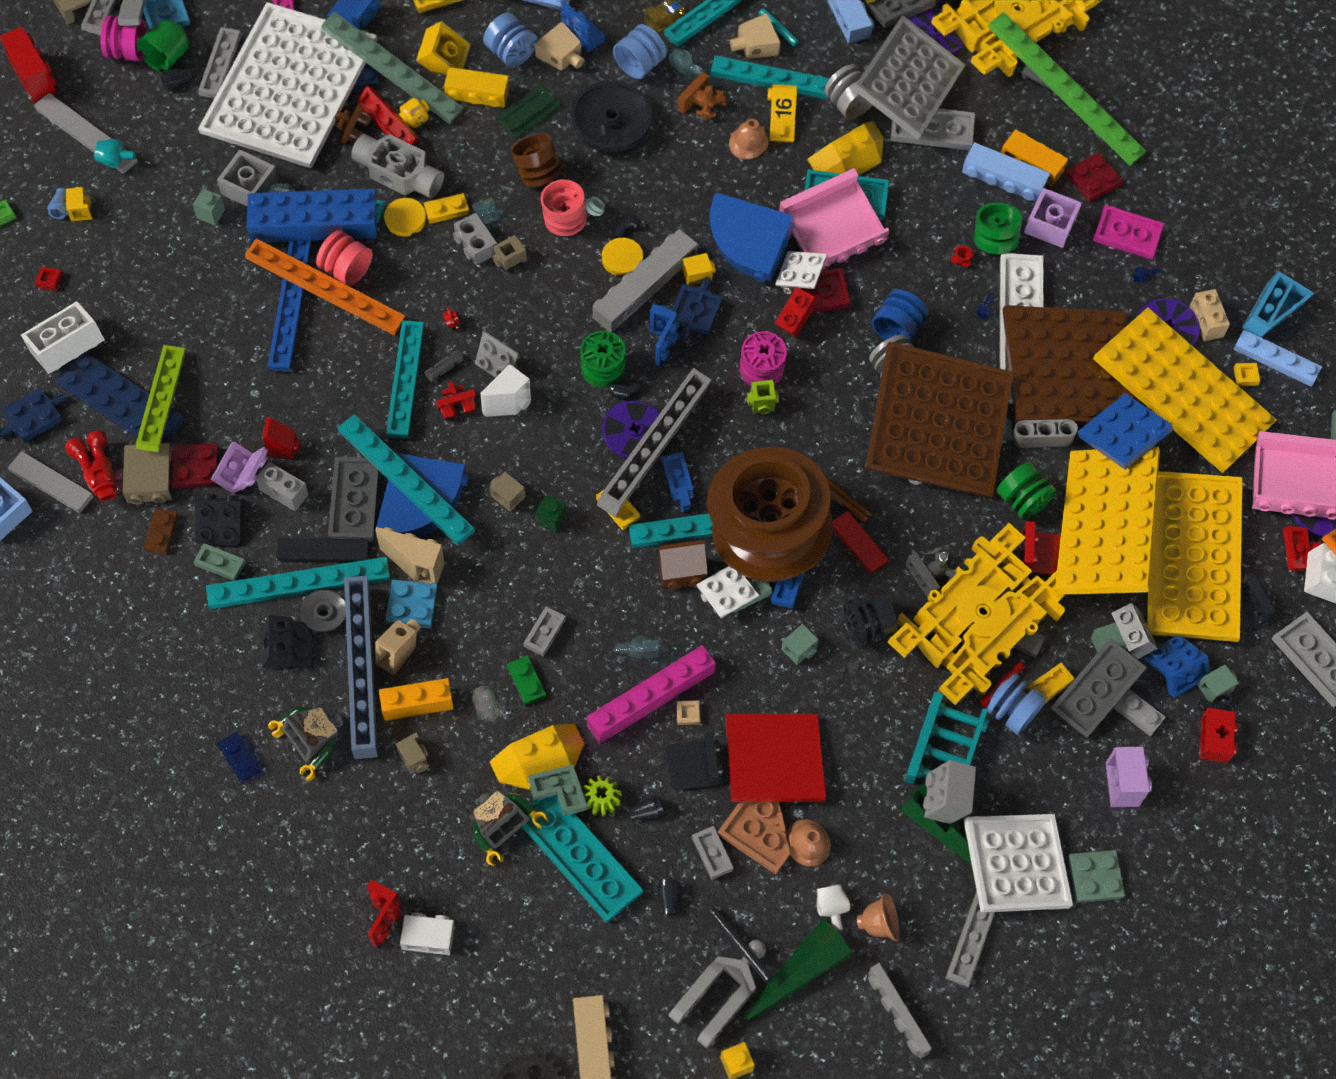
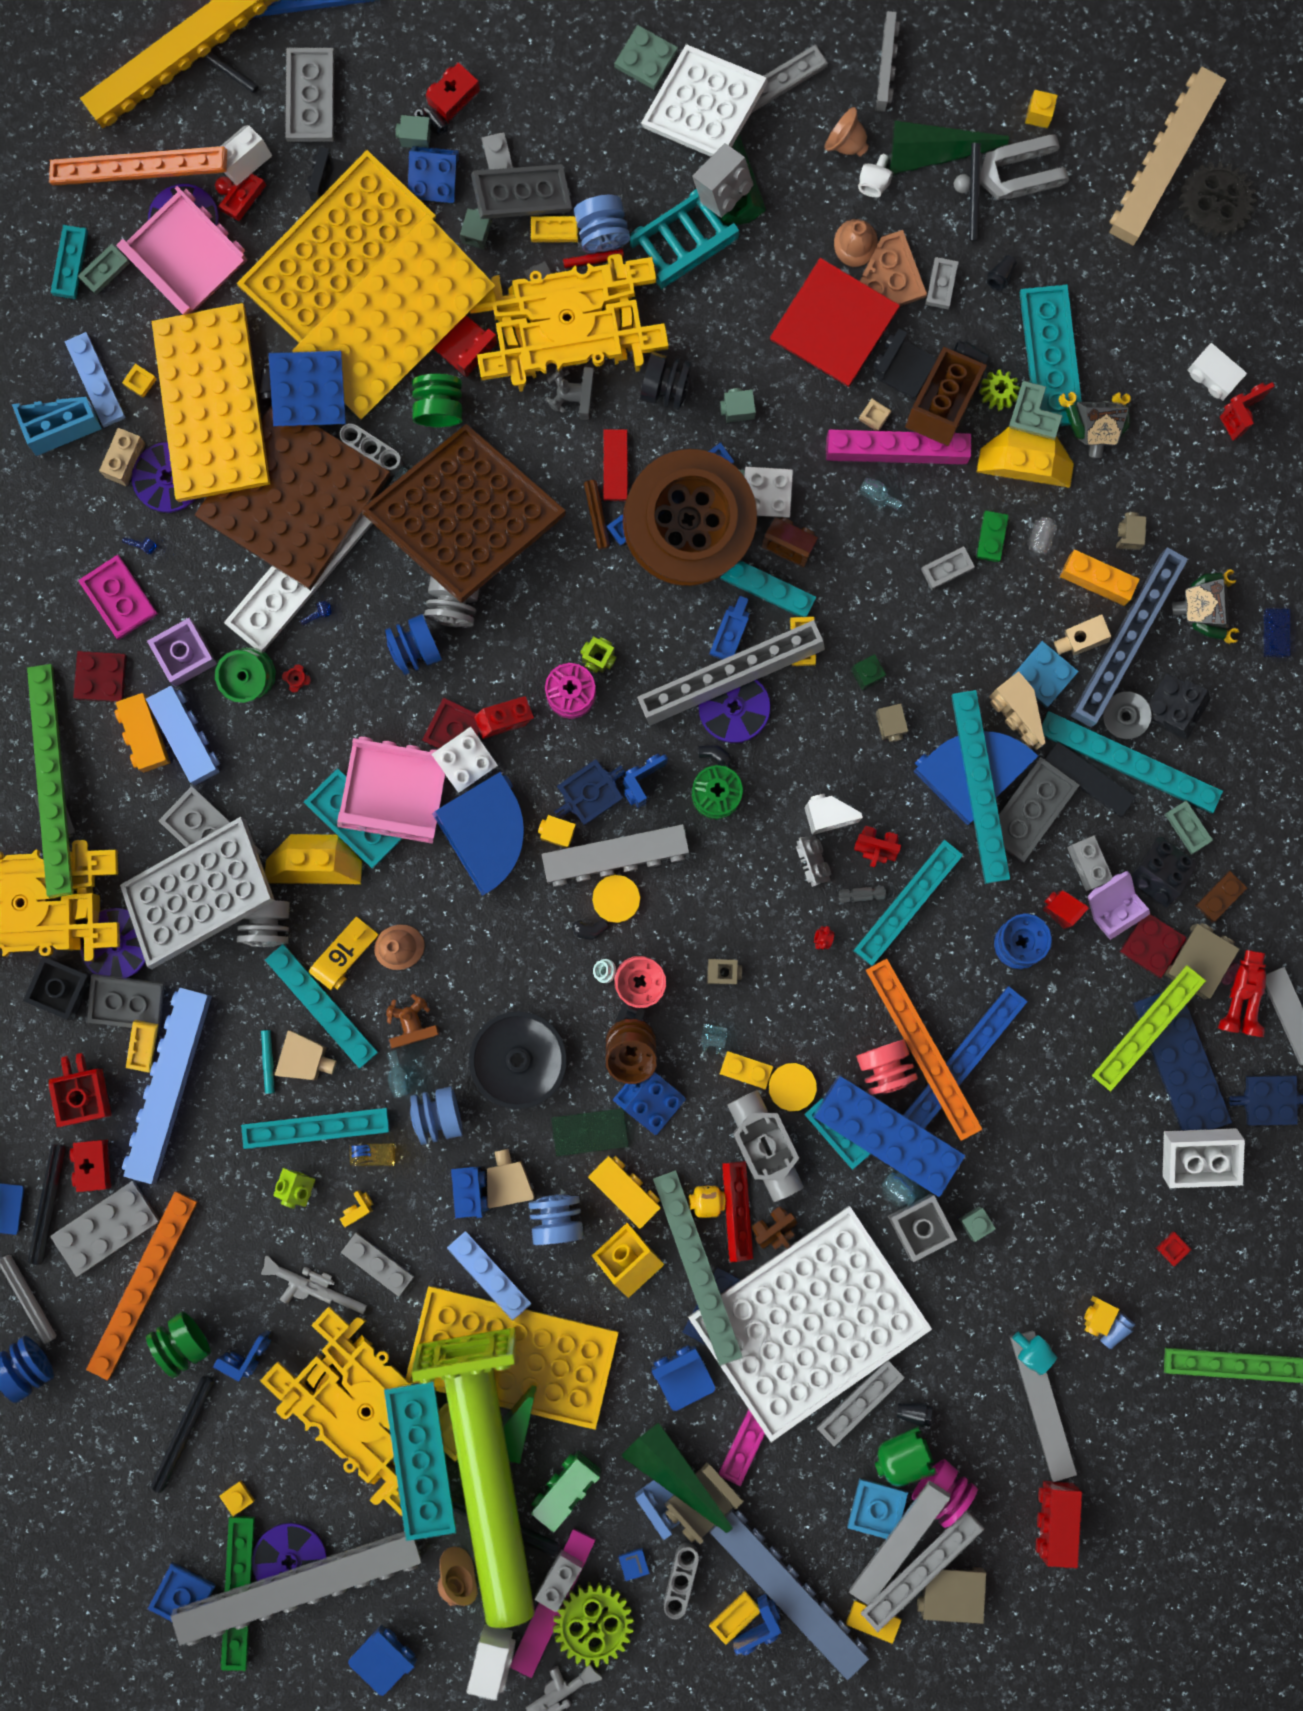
camera: 145 degrees left, 20 degrees up
(296, 387) = (1026, 928): none -> blue wheel
(477, 238) = (737, 1010): light grey brick -> none
(496, 147) = (650, 1102): none -> blue bracket
(641, 746) = (945, 396): none -> reddish brown brick
(1128, 776) = (560, 103): lavender brick -> none
(1134, 630) = (452, 213): light grey brick -> none

